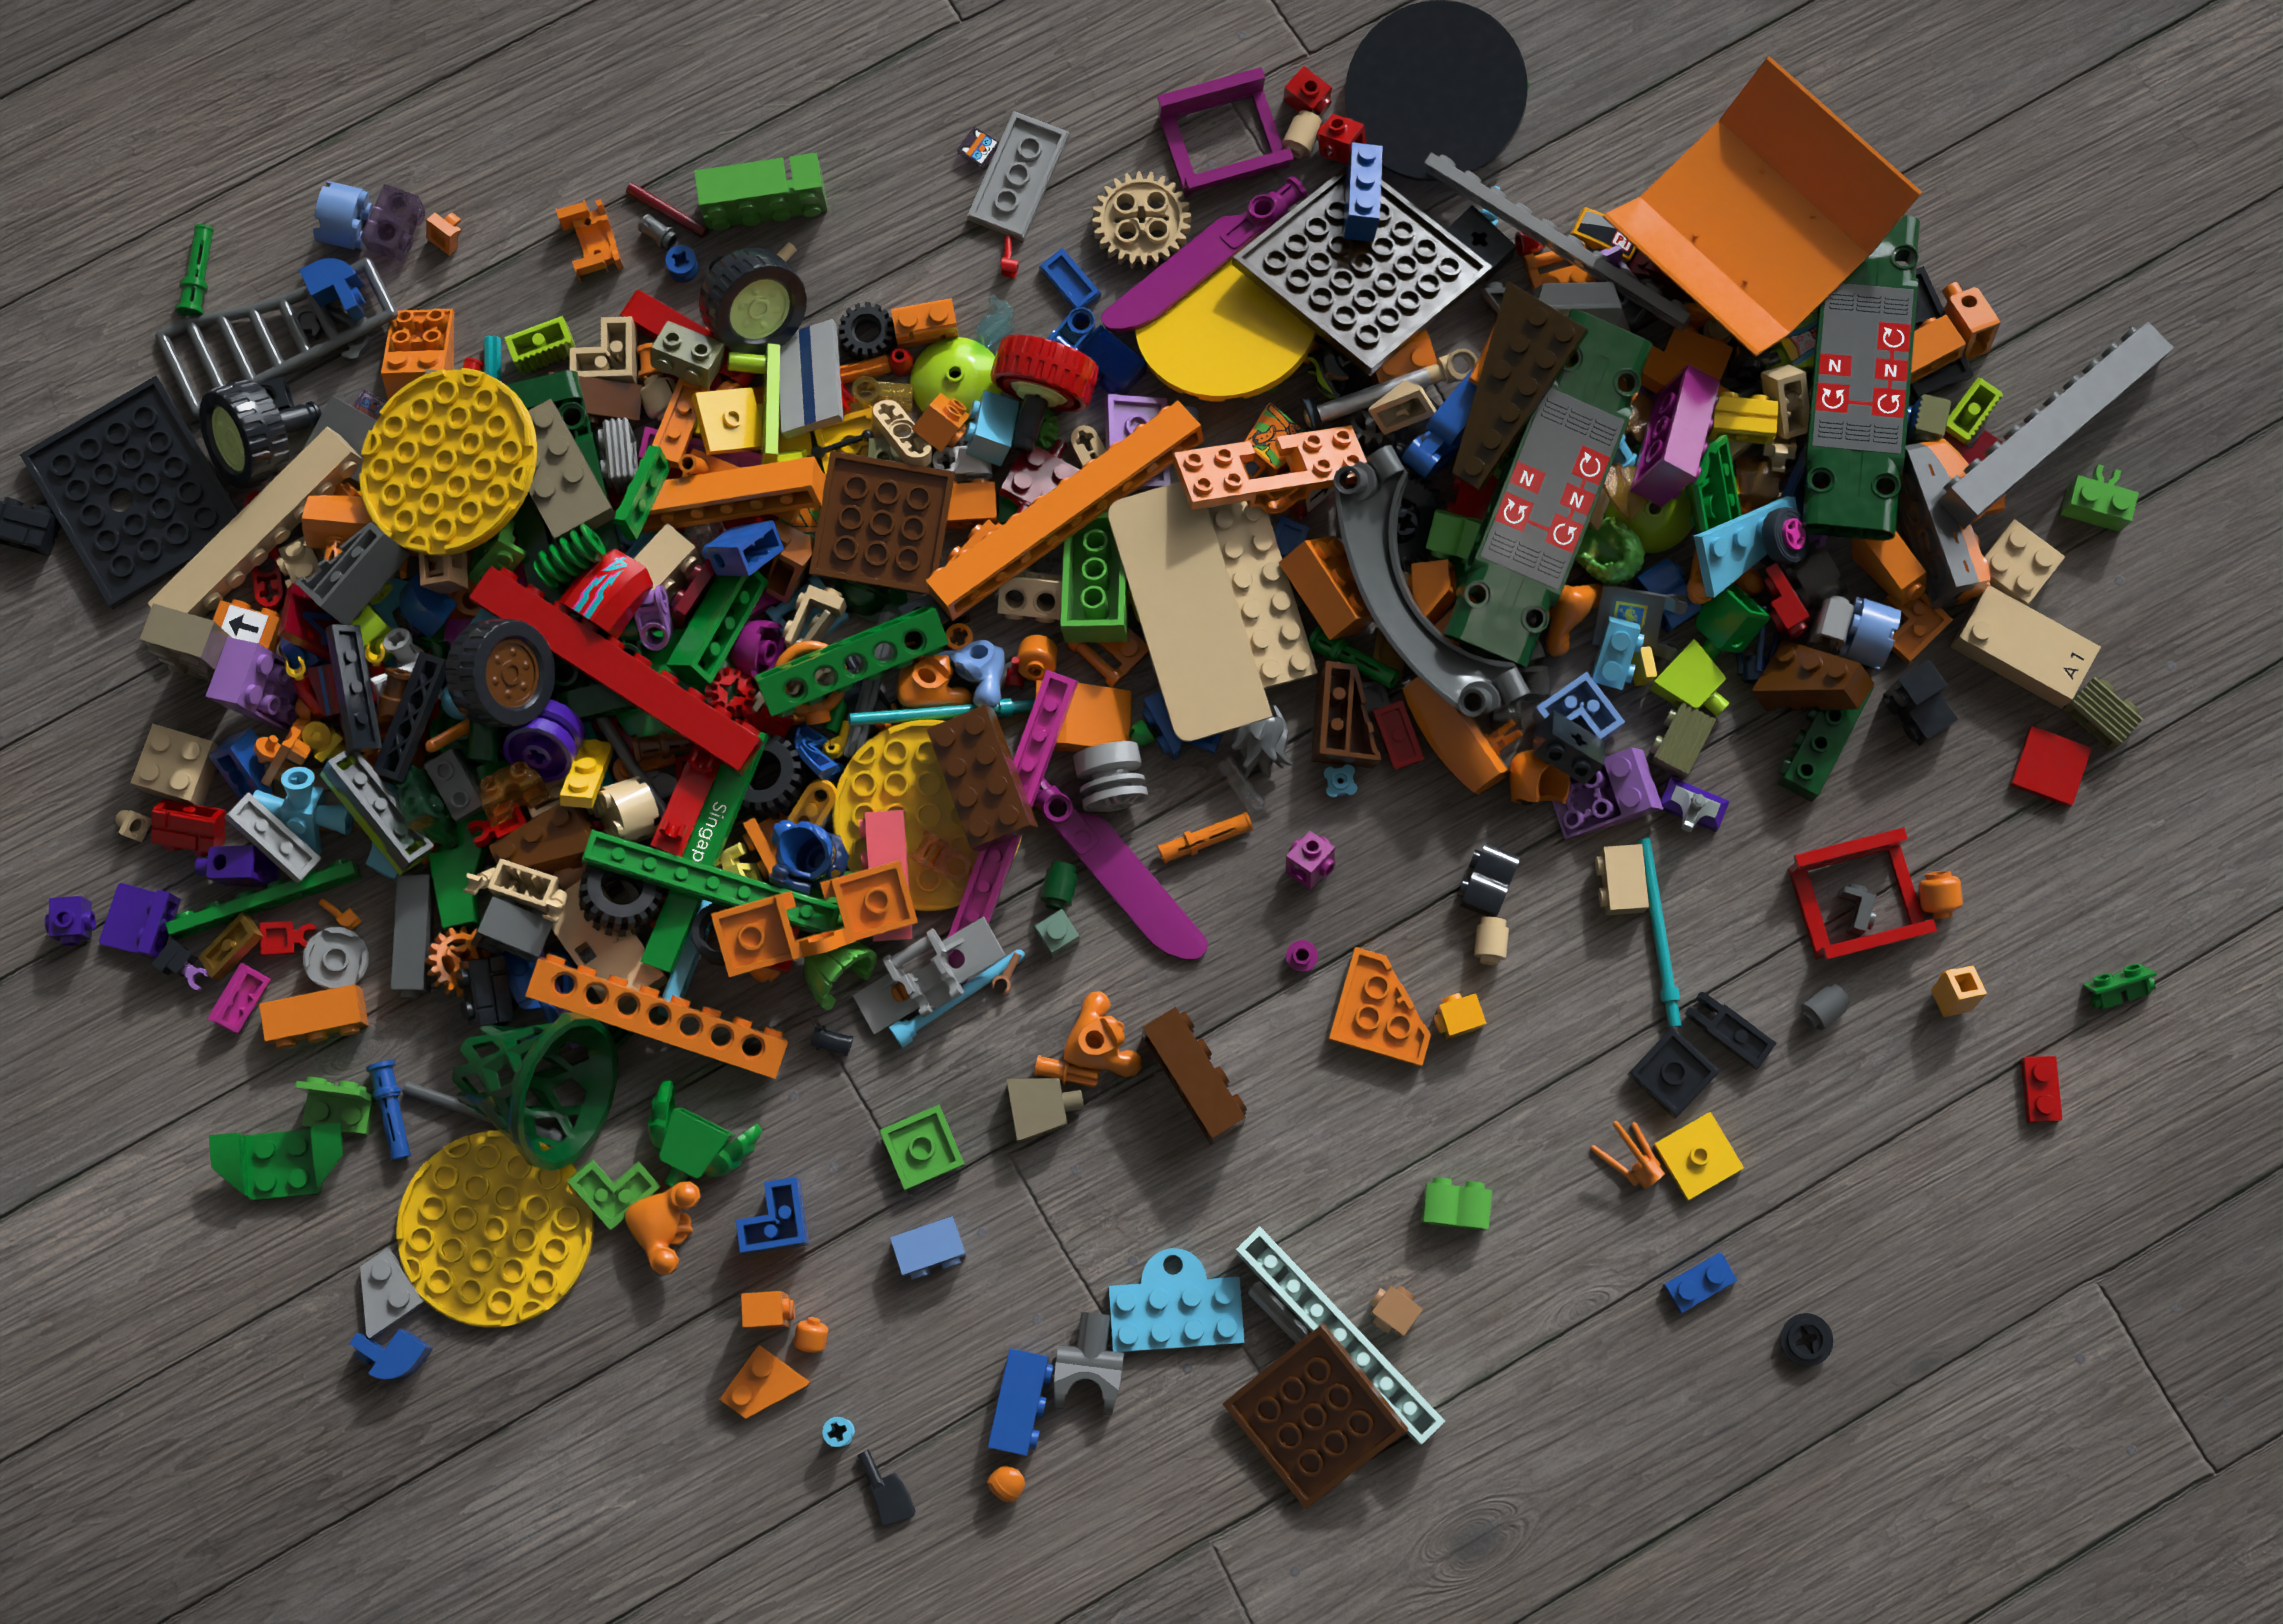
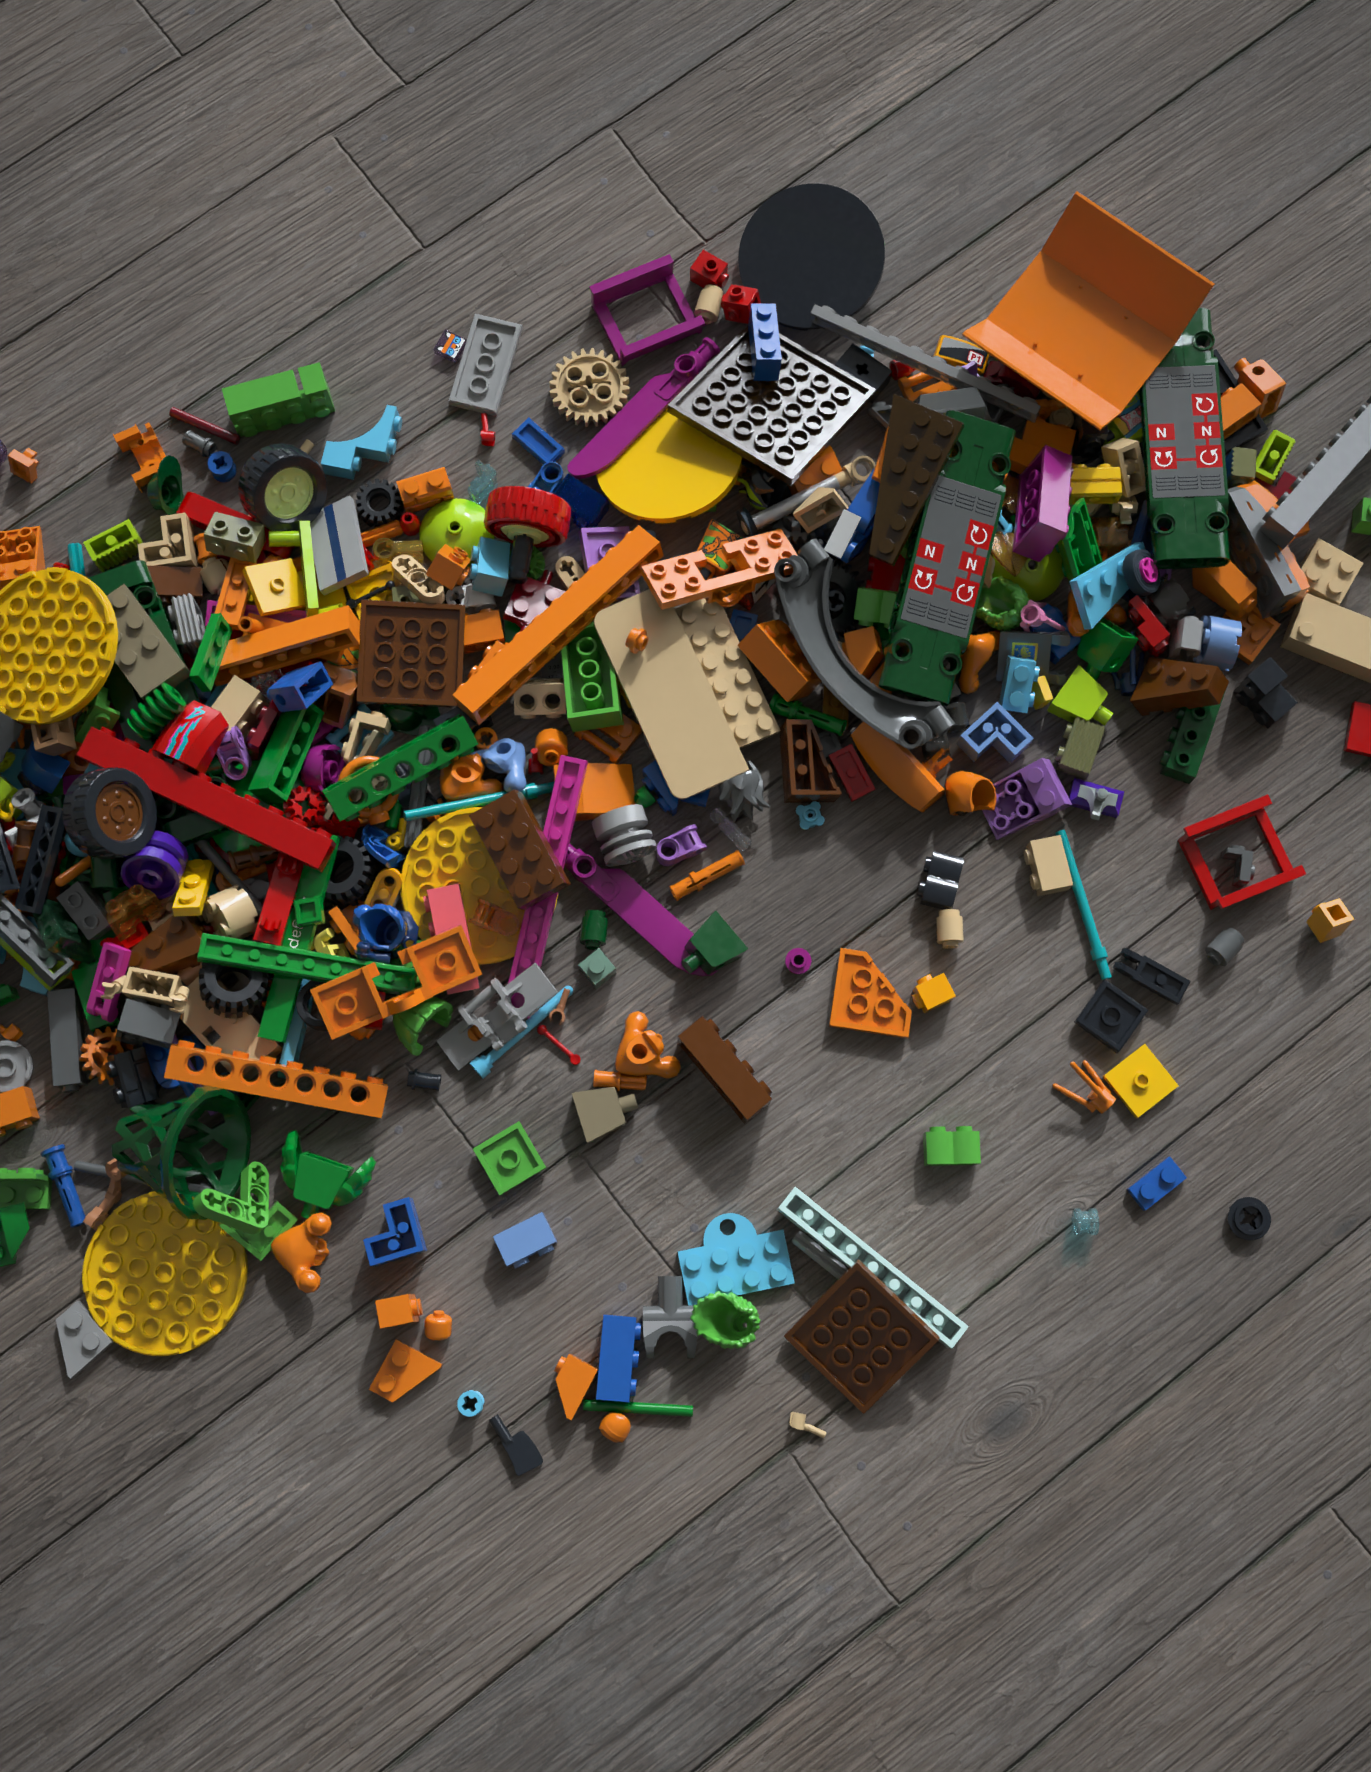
camera: 10 degrees left, 0 degrees up
(396, 1361) = (95, 1393): blue brick -> none
(445, 1128) = (113, 1195): none -> nougat piece
(477, 856) = (111, 966): none -> dark pink plate
(605, 1173) = (214, 1204): none -> bright green beam
(611, 281) = (166, 486): none -> dark green piece
(721, 820) = (309, 911): none -> green tile
(832, 271) = (344, 457): none -> medium azure arch
(964, 1424) = (573, 1382): none -> orange slope
(1015, 1038) = (574, 1058): none -> red hinge
(1037, 1465) = (638, 1408): none -> green bar
(1153, 1373) = (723, 1320): none -> bright green piece
(1156, 542) = (637, 640): none -> orange plate
(1179, 797) = (684, 843): none -> medium lavender piece
(1200, 925) = (713, 946): none -> dark green torso
(1226, 1506) = (797, 1421): none -> tan hand
(1310, 859) = (795, 882): magenta brick -> none
(1394, 1310) = (913, 1240): medium nougat brick -> none
(1424, 442) = (842, 533): none -> white sticker
(1569, 747) = (992, 764): black brick -> none
(1606, 1316) = (1085, 1221): none -> clear light blue wheel
(1646, 573) = (1034, 616): none -> bright pink plant
(1940, 894) = (1303, 844): orange head -> none

